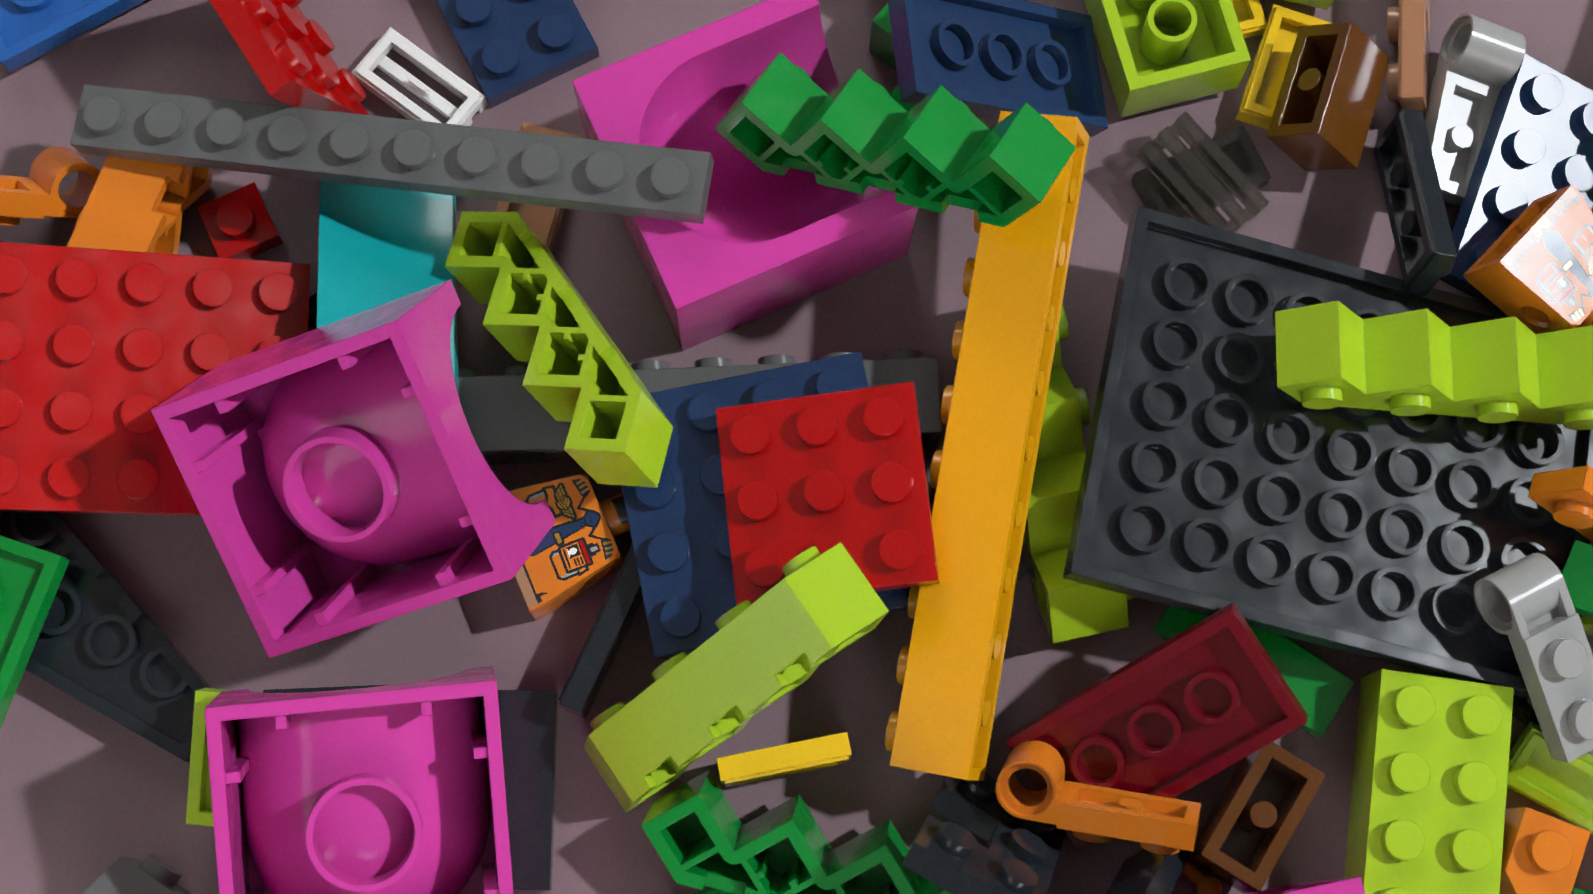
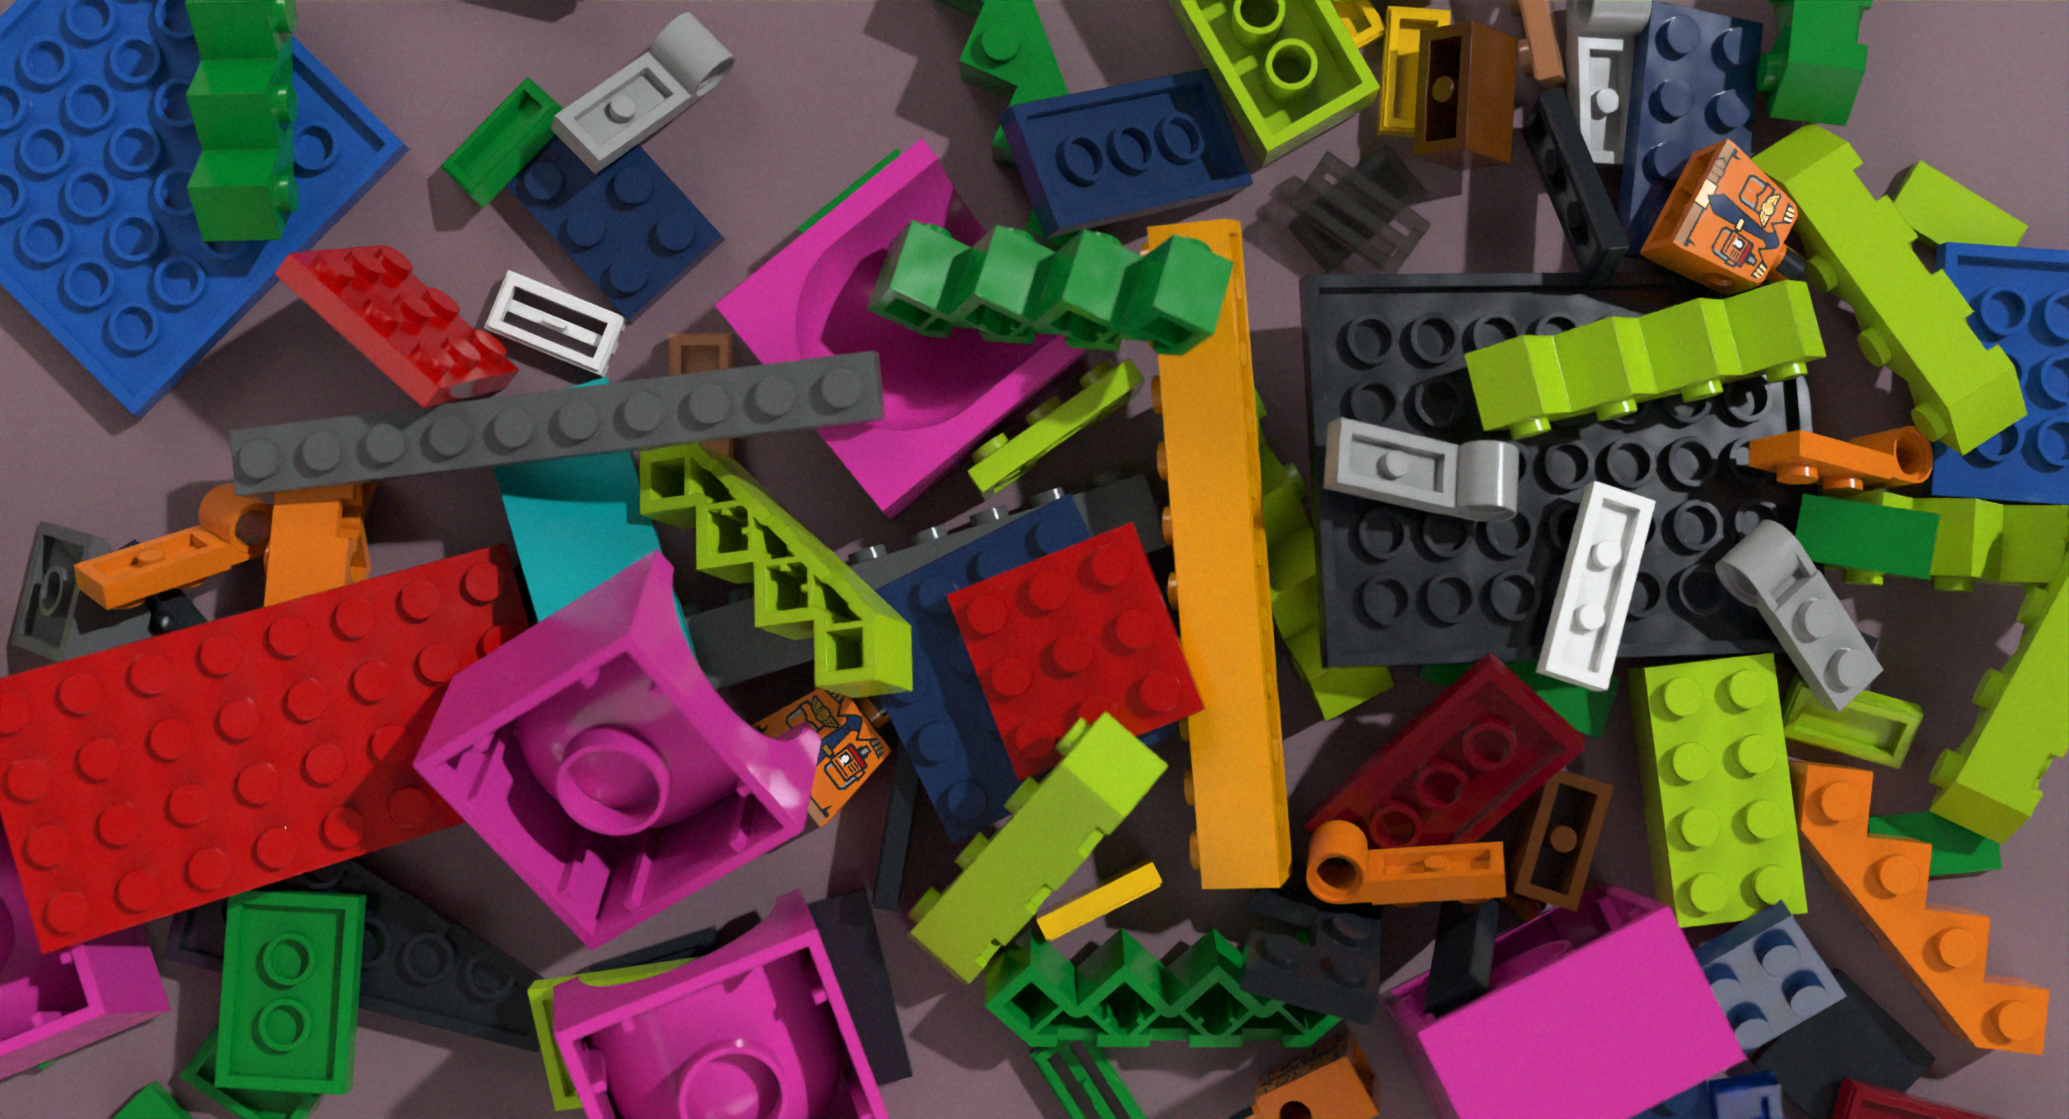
camera: 10 degrees left, 10 degrees up
(240, 223) = (421, 514): red plate -> none
(913, 277) = (1051, 423): none -> lime plate
(1246, 432) = (1423, 473): none -> light grey plate
(1352, 569) = (1596, 586): none -> white plate

